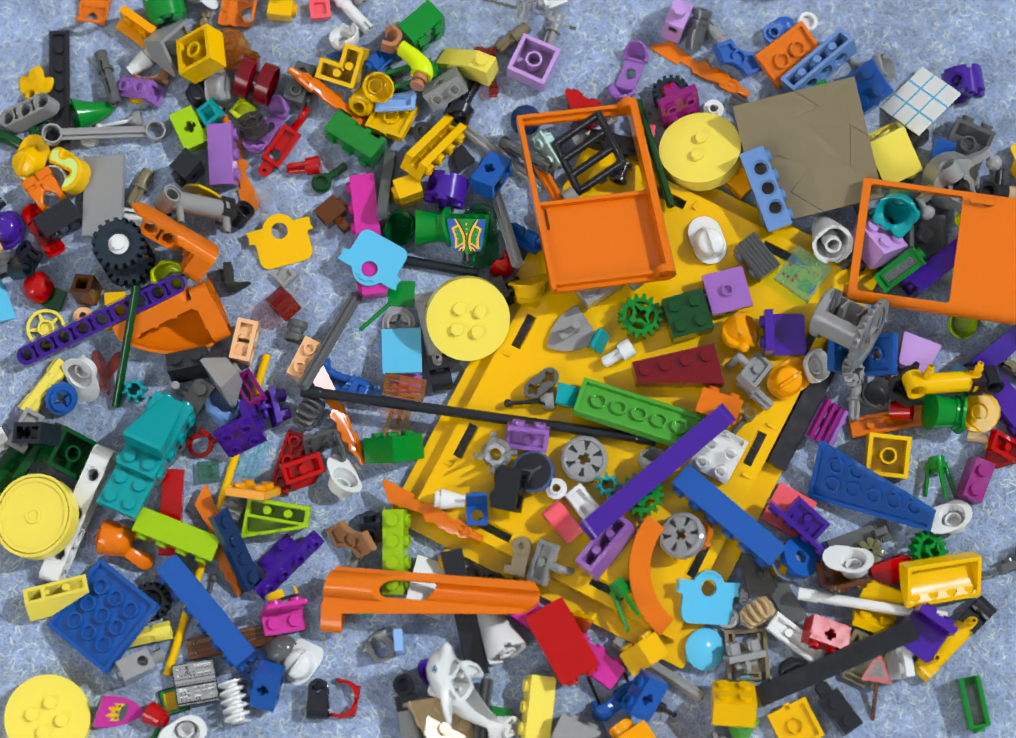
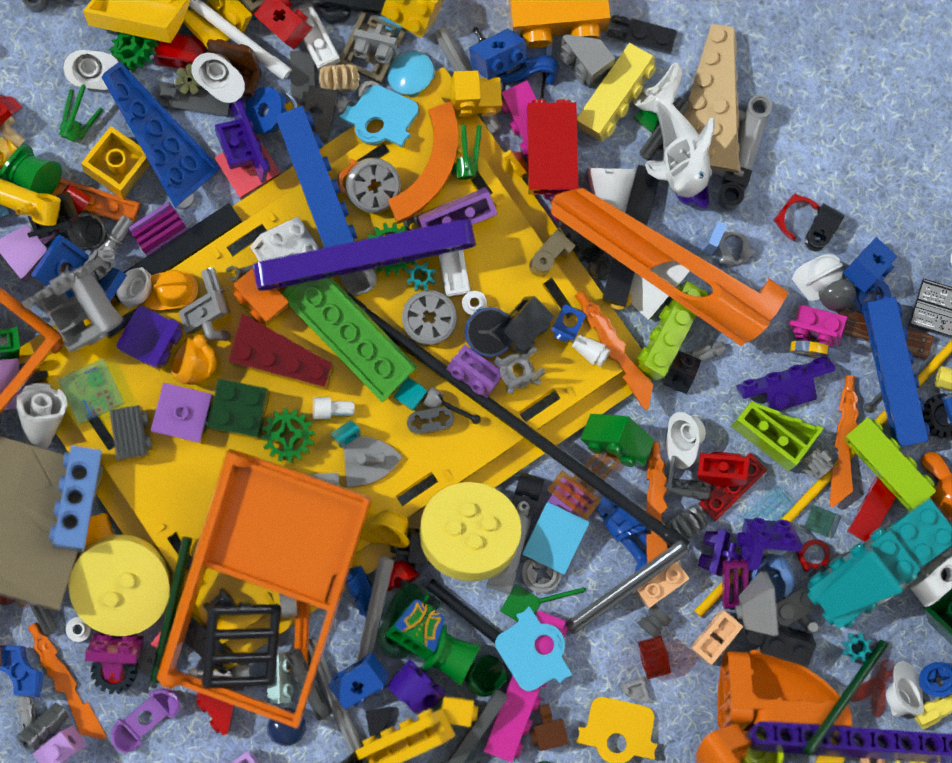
camera: 155 degrees left, 5 degrees up
(227, 275) = (696, 722): pearl dark grey plate -> none
(234, 702) = (908, 267): white piece -> none
(235, 549) = (836, 418): dark blue plate -> none
(252, 490) = (787, 470): light orange plate -> none
(356, 541) = (704, 360): medium nougat tile -> none
(544, 563) = (528, 233): light grey plate -> none
(561, 521) = (486, 265): coral panel -> none
(707, 240) = (169, 482): white piece -> none
(974, 480) = (43, 92): magenta brick -> none

